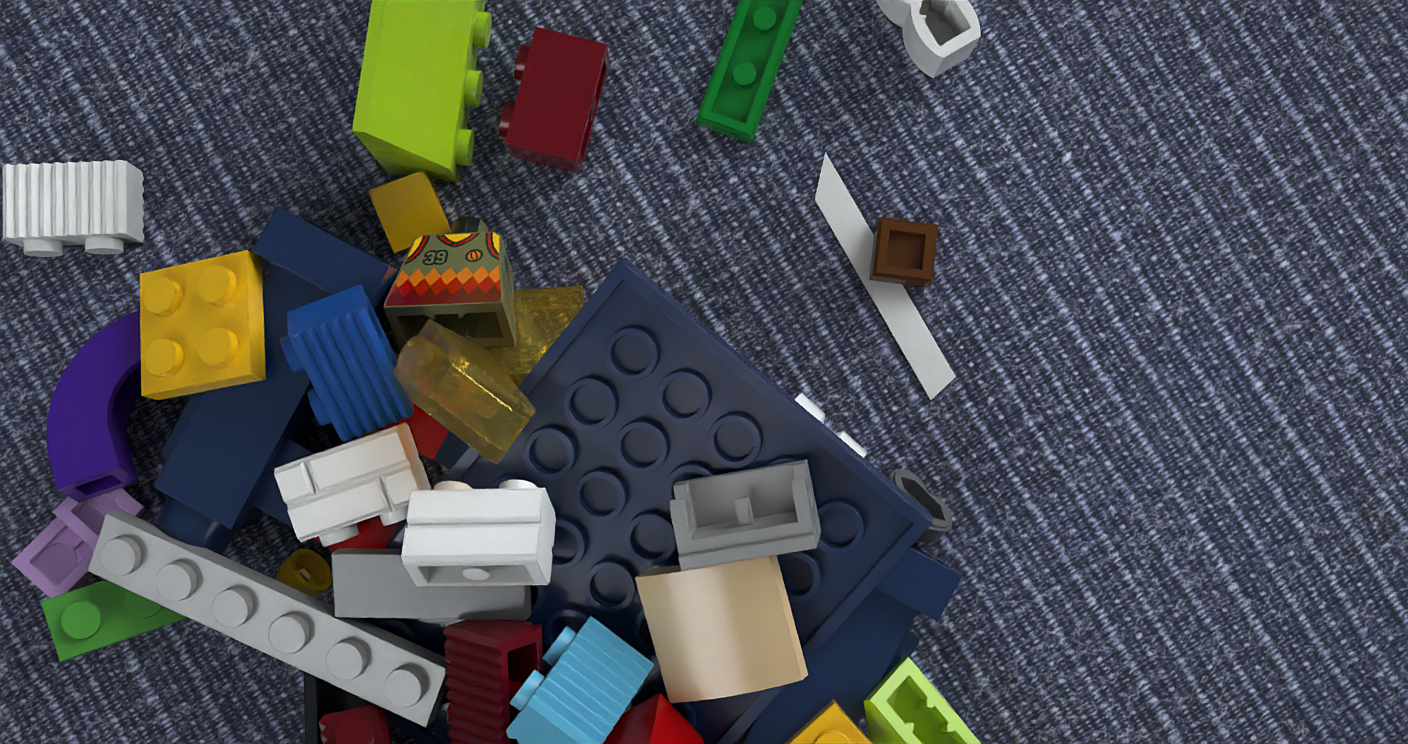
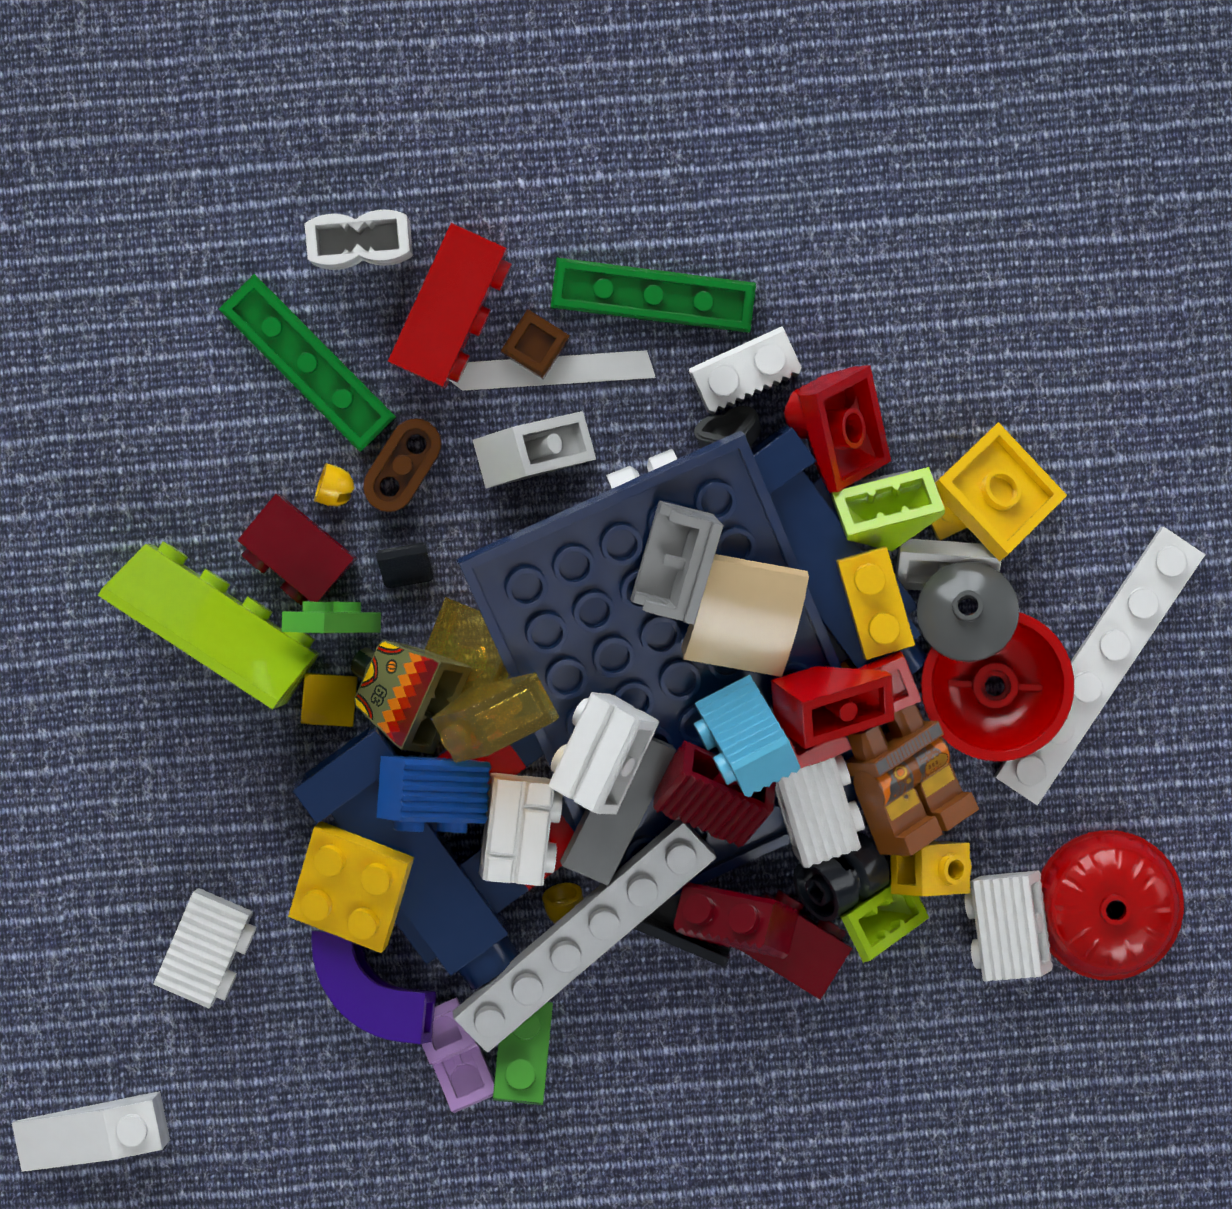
camera: 60 degrees left, 5 degrees up
(490, 151) = (331, 618): none -> bright green plate
(597, 225) = (405, 565): none -> black slope
(645, 109) = (334, 486): none -> yellow hinge
(704, 165) = (398, 462): none -> reddish brown plate
(790, 302) = (534, 449): none -> white slope
(900, 139) = (450, 307): none -> red brick
(984, 629) = (841, 424): none -> red slope
(991, 493) = (745, 370): none -> white brick
(1019, 355) = (653, 295): none -> green tile

